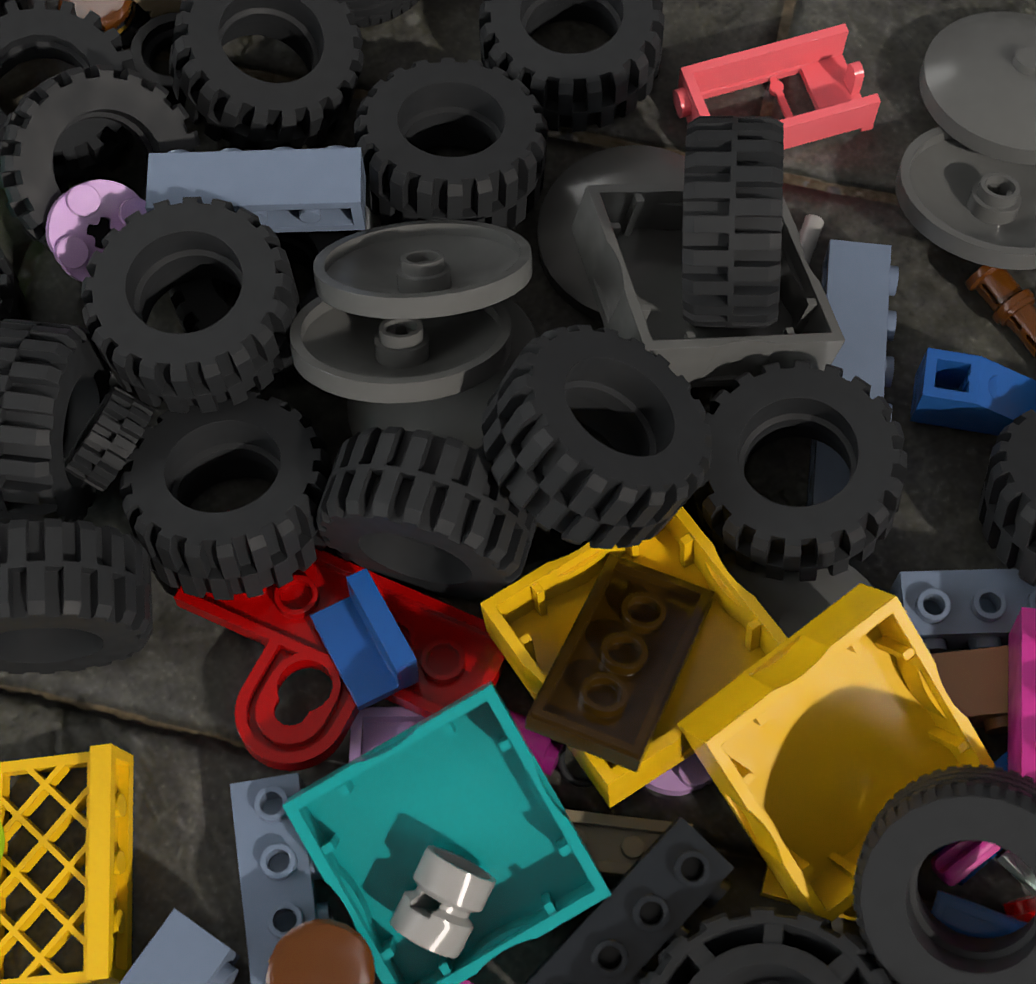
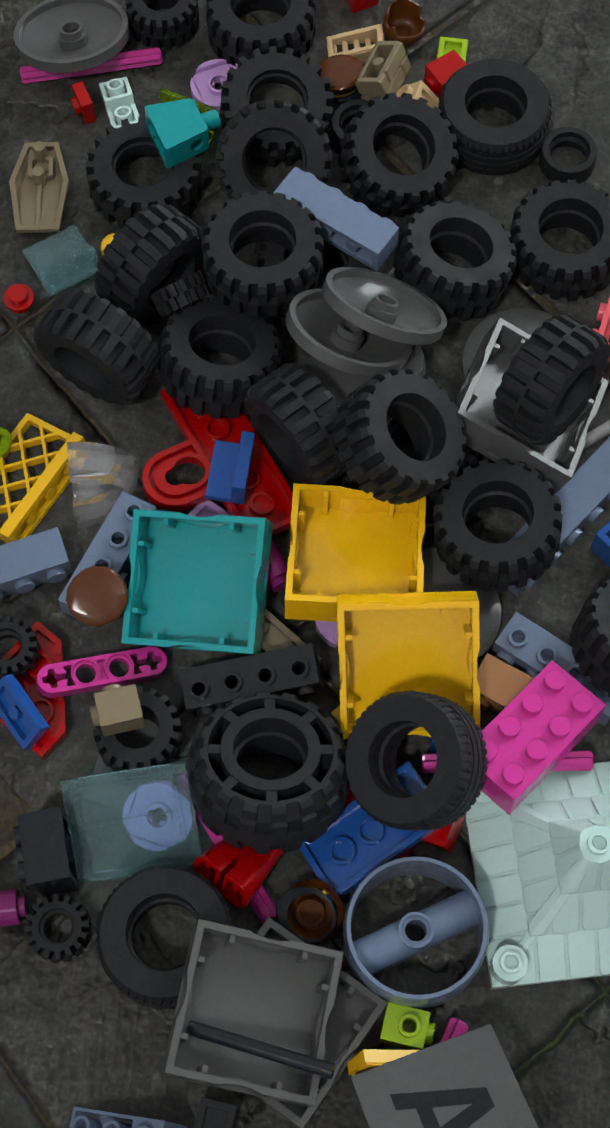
camera: 35 degrees right, 0 degrees up
(83, 207) = (245, 173): lavender plate -> none
(181, 791) = (98, 478): none -> clear brick
(441, 904) = (177, 605): light grey wheel -> none
(620, 662) = (338, 552): dark brown tile -> none

